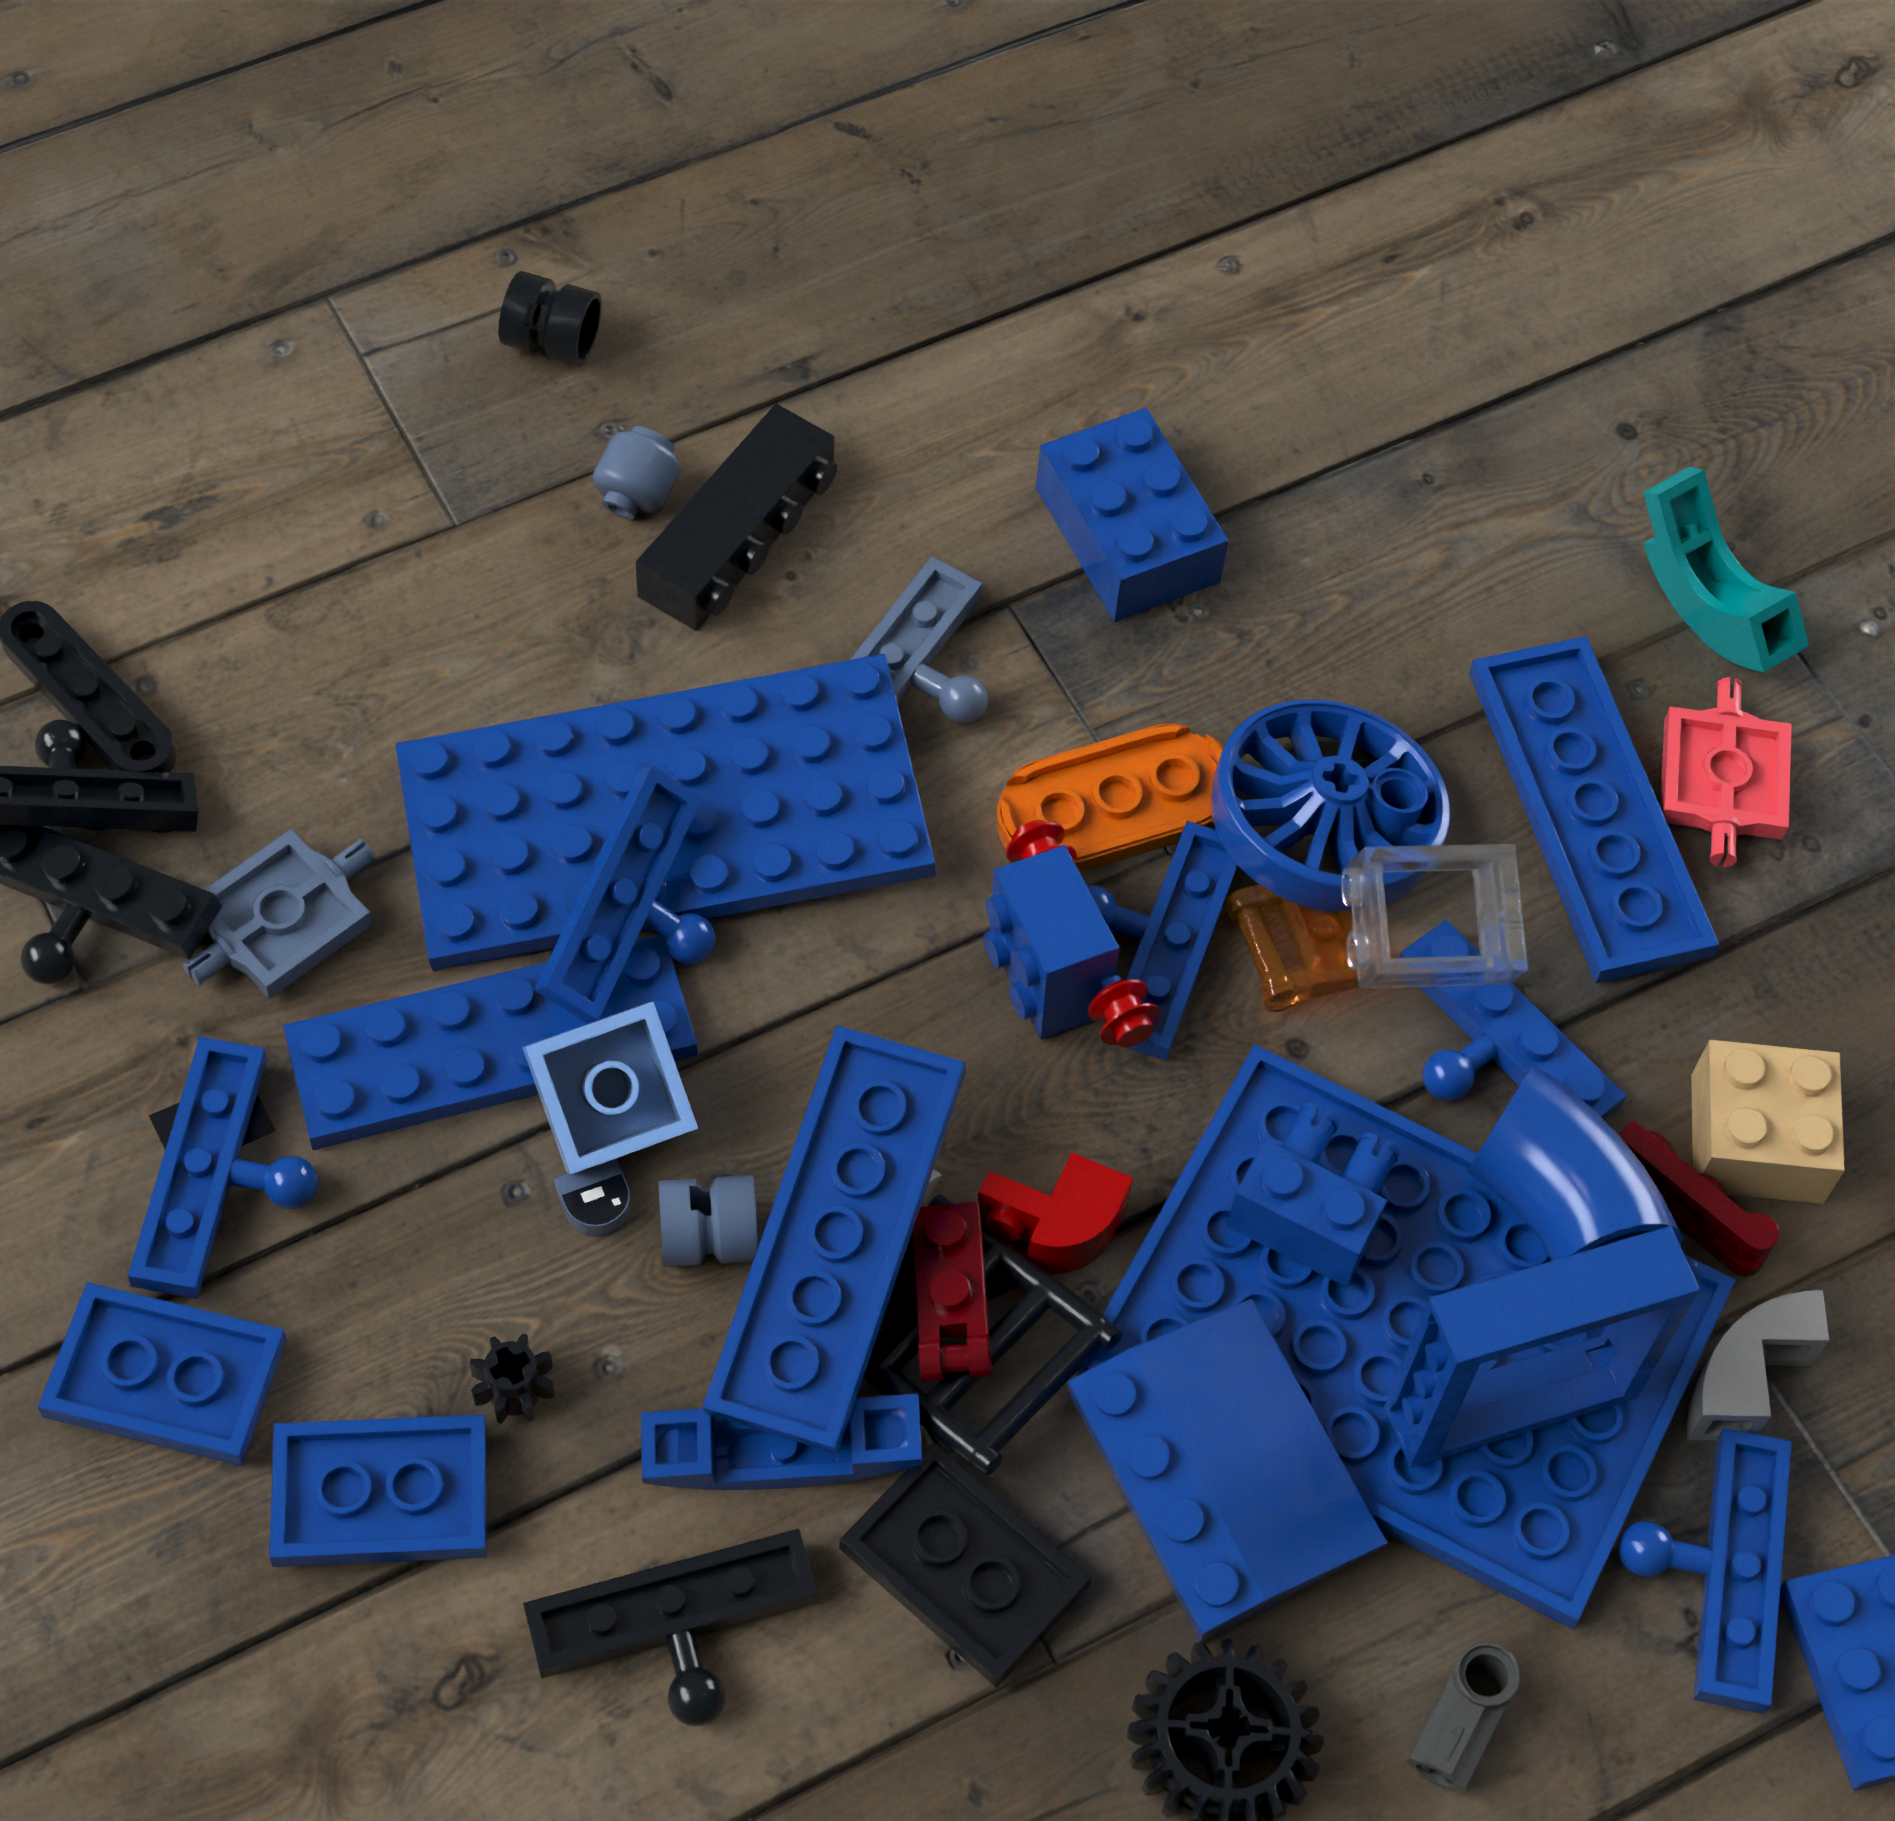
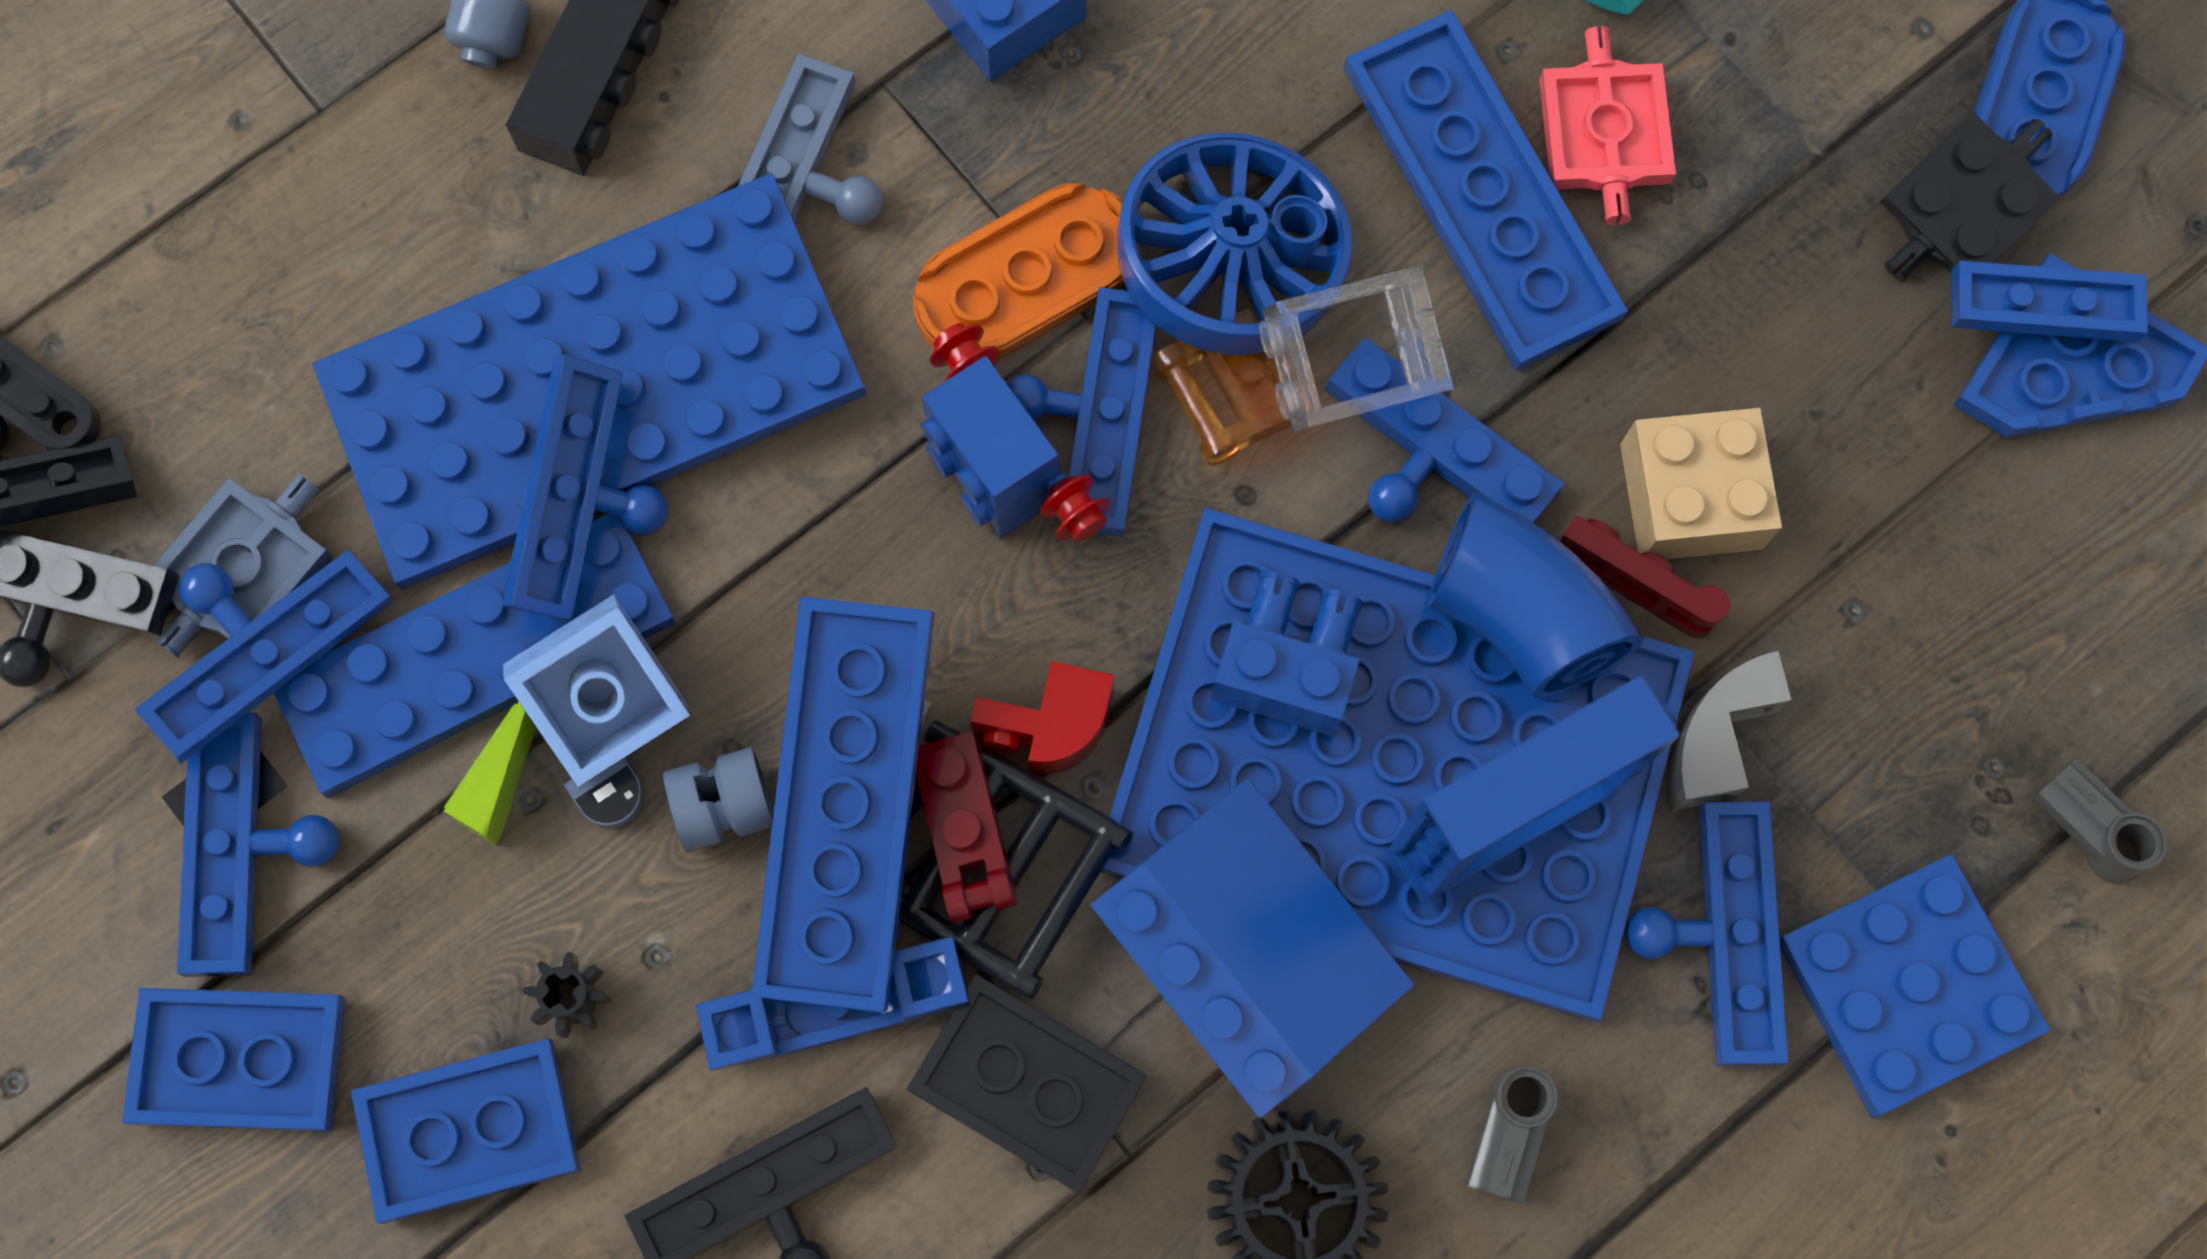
camera: 10 degrees left, 15 degrees up
(282, 990) = (260, 652): none -> blue plate
(479, 1163) = (491, 783): none -> lime slope

